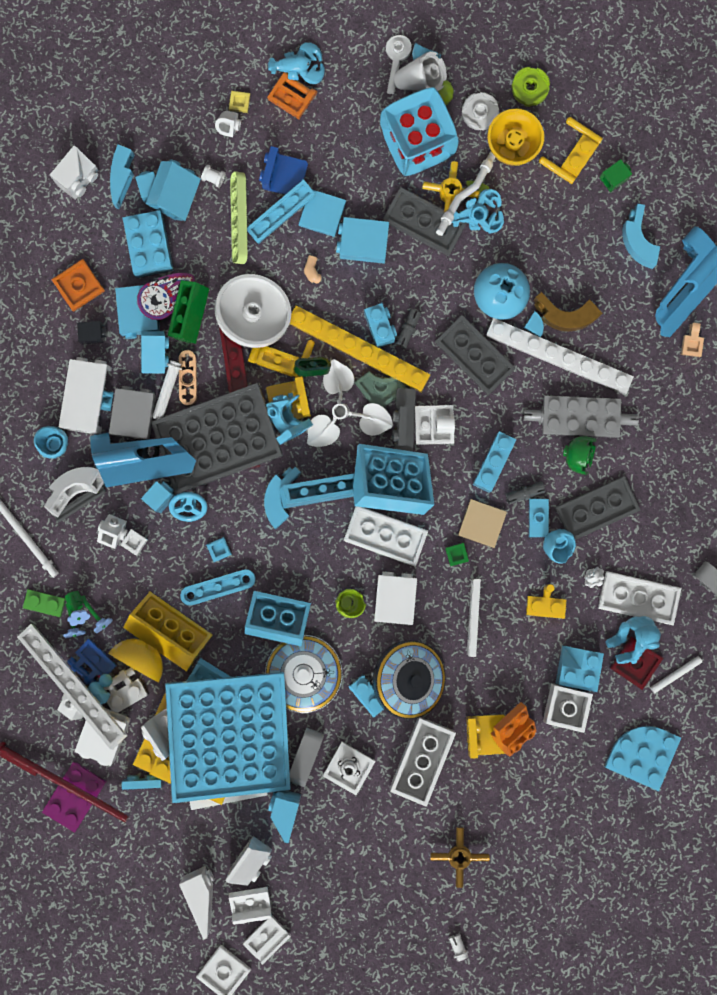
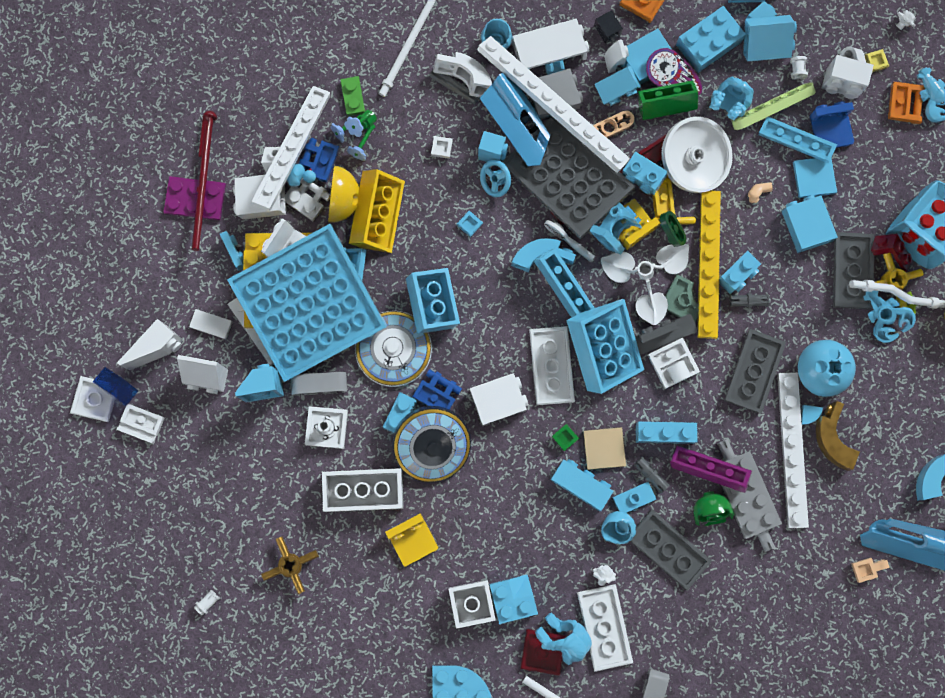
camera: 70 degrees right, 5 degrees down
(112, 531) = (442, 123): white brick -> none
(123, 339) = (616, 56): none -> white slope
(143, 421) = (553, 104): none -> white plate
(166, 390) = (599, 112): white axle -> none
(202, 833) = (210, 324): none -> white tile
(213, 55) = (906, 19): none -> white plant
(213, 250) = (733, 97): none -> medium azure hair
(217, 587) = (436, 237): medium azure plate -> none
(222, 949) = (115, 386): none -> clear blue slope
(244, 138) = (847, 77): none -> white brick
(249, 368) = (644, 173): none -> medium azure brick
(250, 905) = (165, 394): white bracket -> none
(263, 471) = (557, 230): none -> white piece
(344, 601) = (474, 355): lime hair -> none
(366, 656) = (432, 396): none -> blue plate
(420, 175) = (892, 244): none -> dark red bracket
(473, 617) = (515, 478): white tile -> none
(506, 559) = (582, 484): none -> medium azure brick
(514, 730) = (429, 562): orange brick -> none
(545, 438) = (711, 469): none -> magenta slope
(545, 605) = (557, 542): yellow plate -> none

